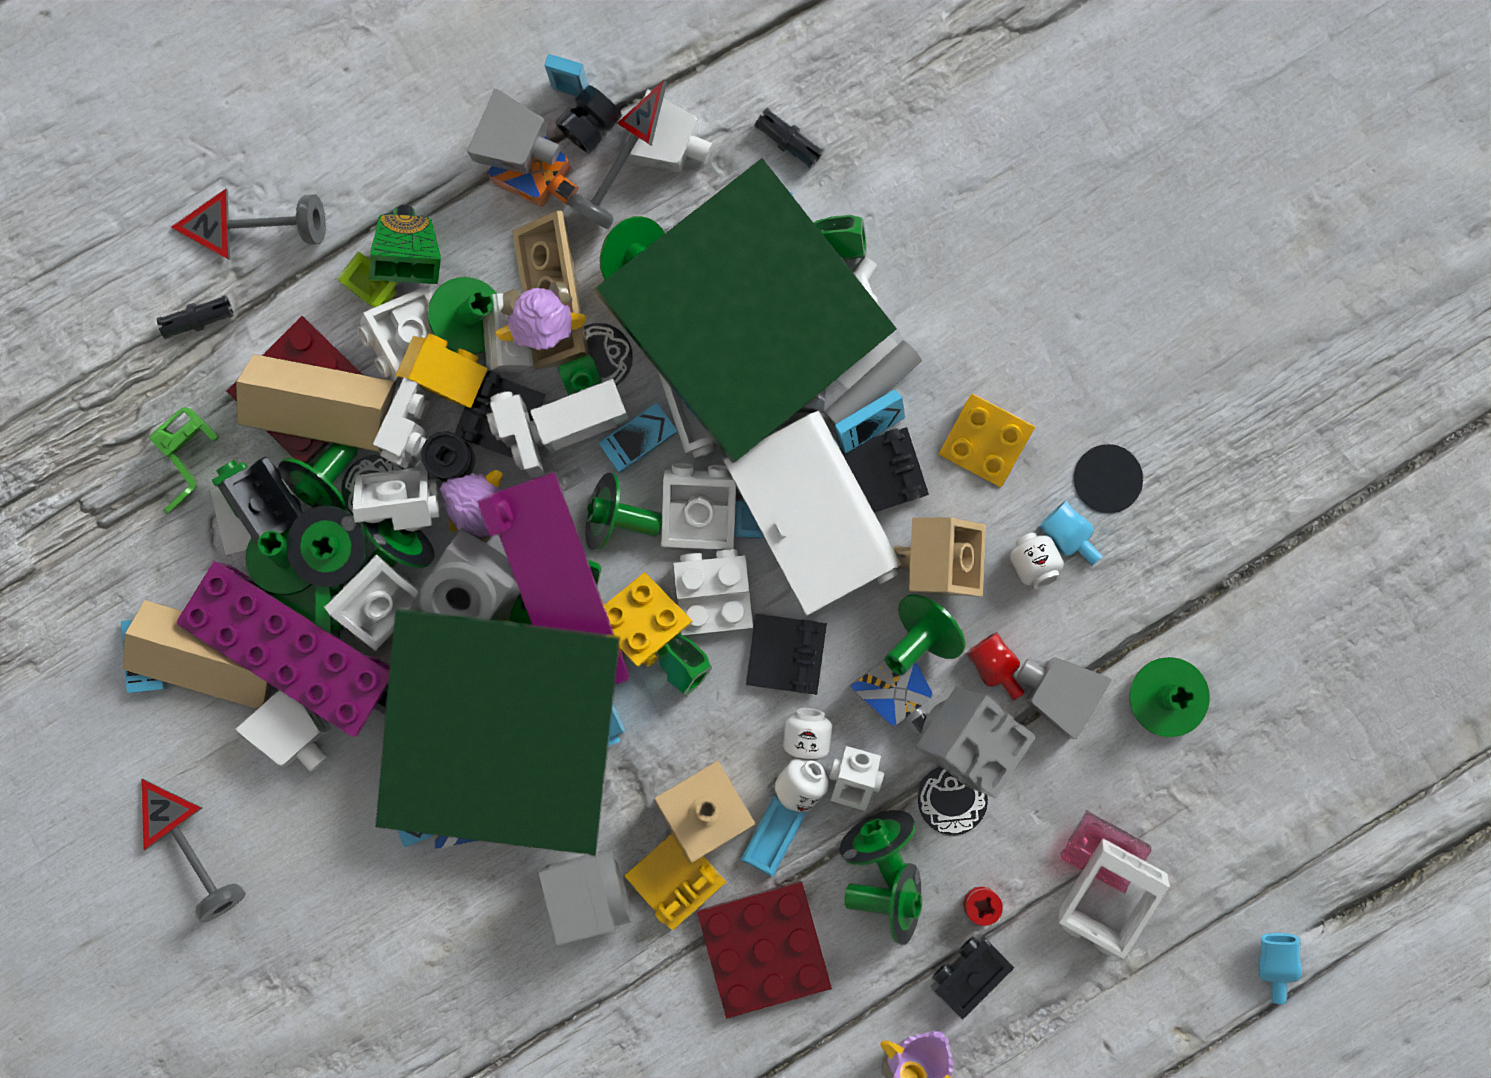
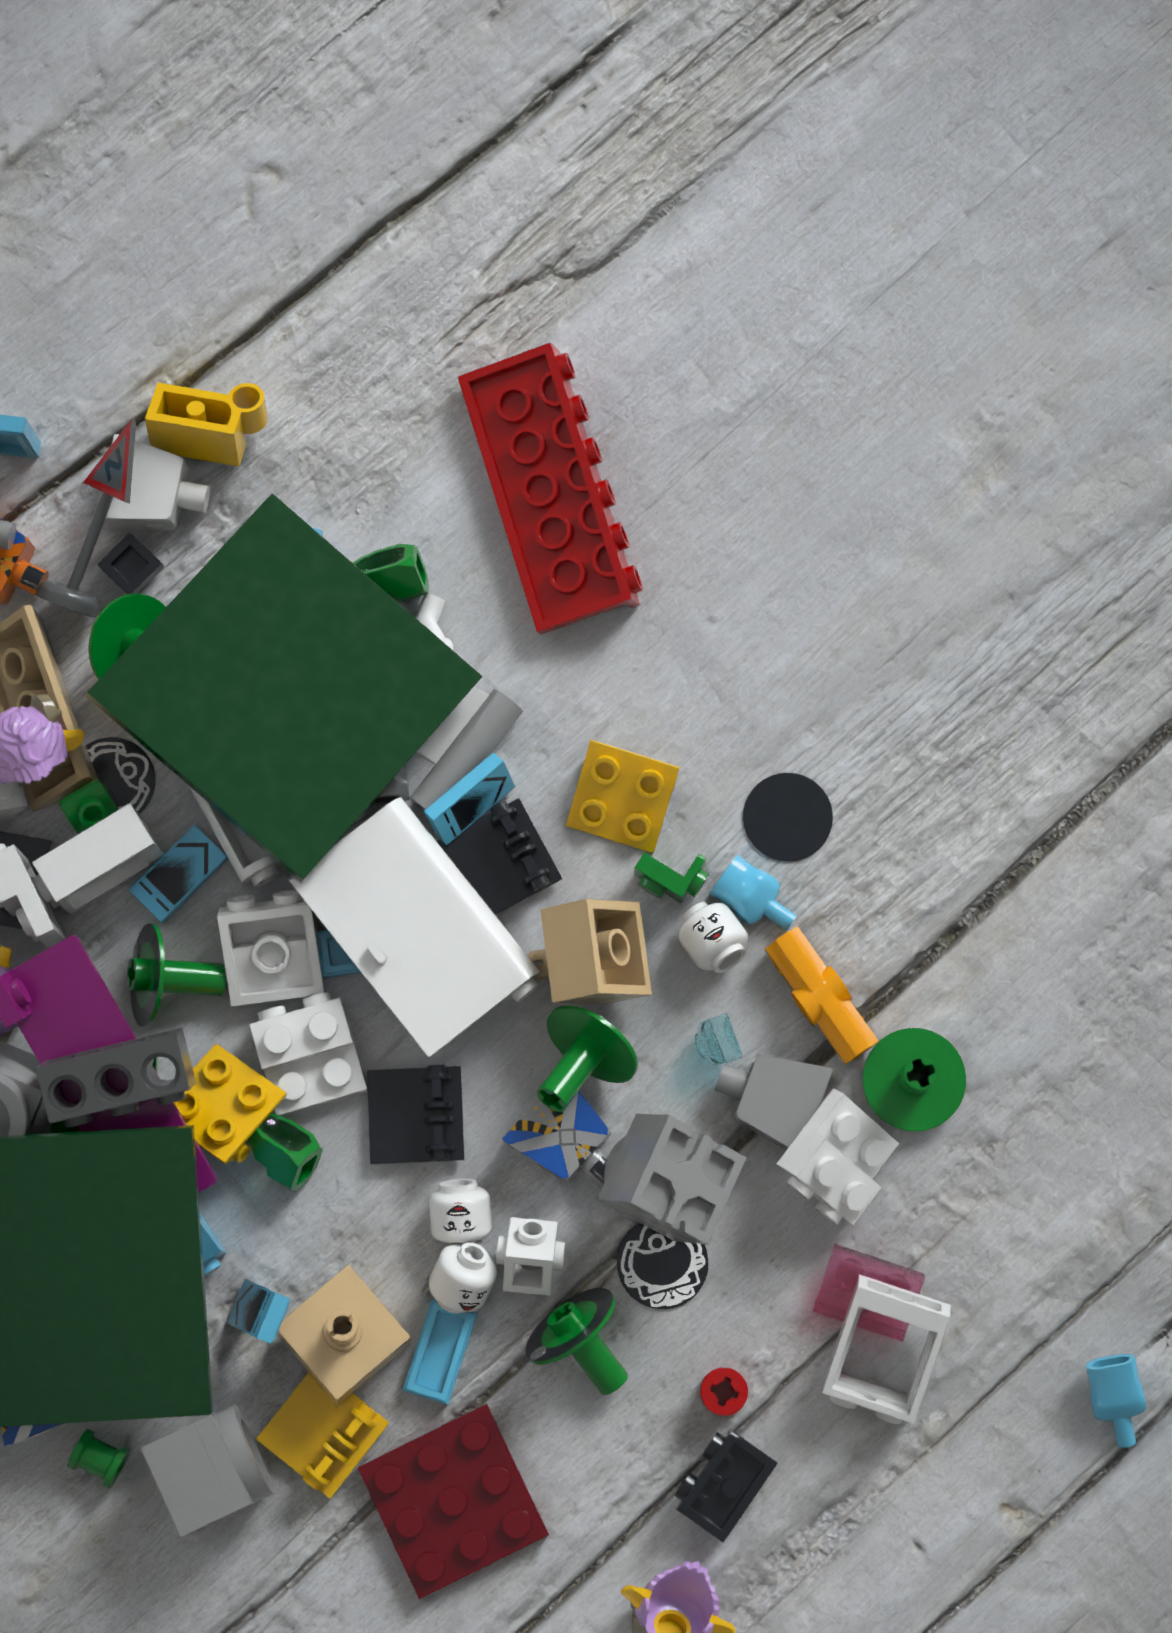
camera: 10 degrees left, 5 degrees down
(503, 868) = (98, 1458): none -> green bush
(580, 574) = (132, 1057): none -> dark grey brick
(588, 119) = (47, 484): black wheel -> none
(642, 193) = (130, 565): none -> black plate
(643, 782) = (258, 1311): none -> medium azure tile
(718, 93) = (205, 422): none -> yellow hinge
(789, 138) = (305, 462): black pin -> none
(901, 902) = (614, 1405): green piece -> none
(973, 192) = (550, 488): none -> red bracket
(996, 664) = (687, 1079): red piece -> none
(1004, 509) = (661, 879): none -> green bracket
(1026, 640) = (717, 1040): none -> clear light blue plate
(1102, 747) = (838, 1159): none -> white plate
(1111, 620) = (821, 995): none -> light orange piece

